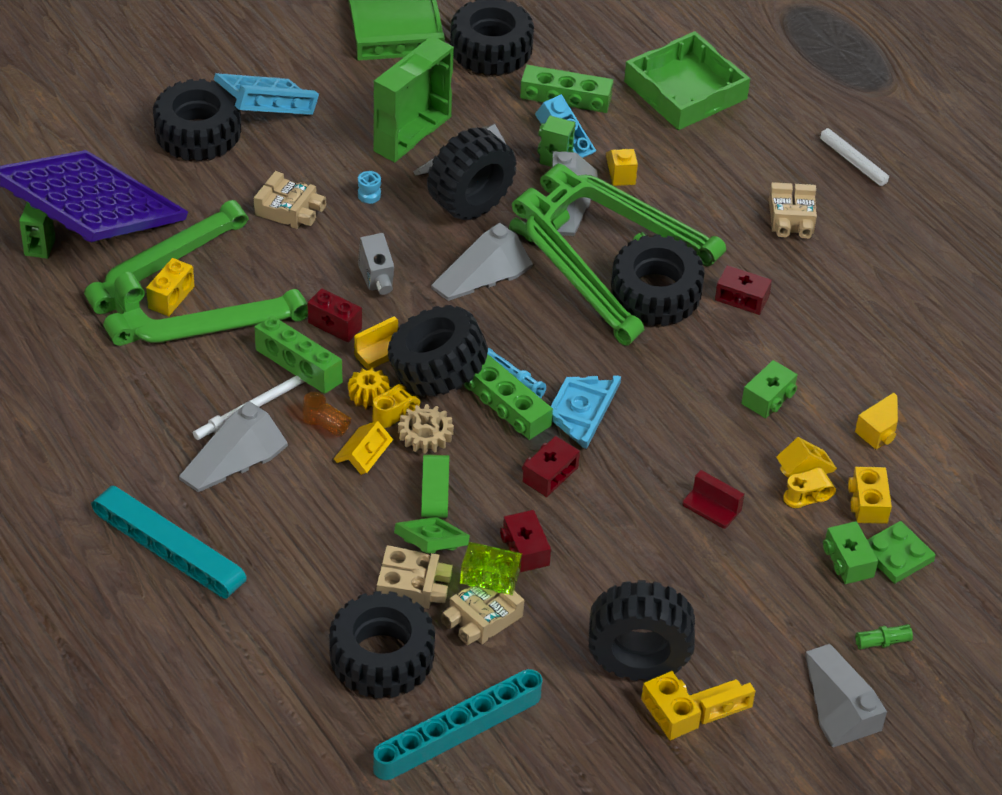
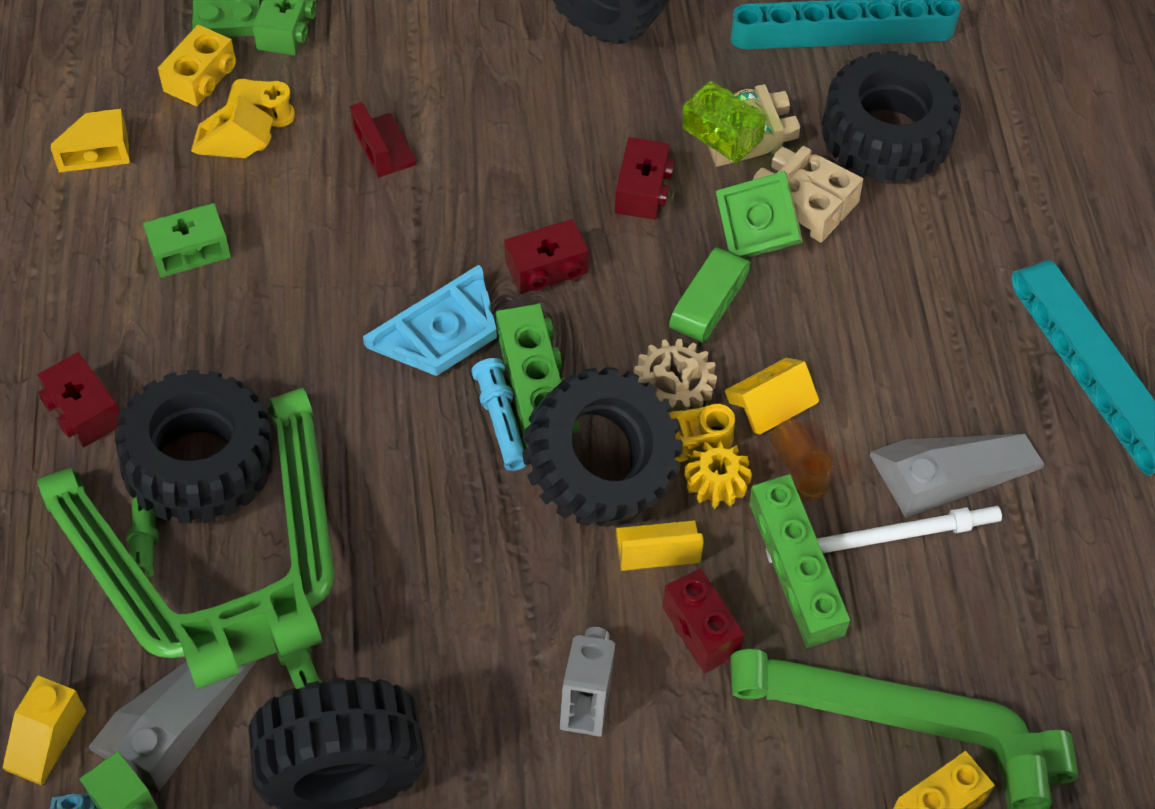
camera: 150 degrees left, 10 degrees up
(489, 259) = (405, 627): light grey wedge -> none

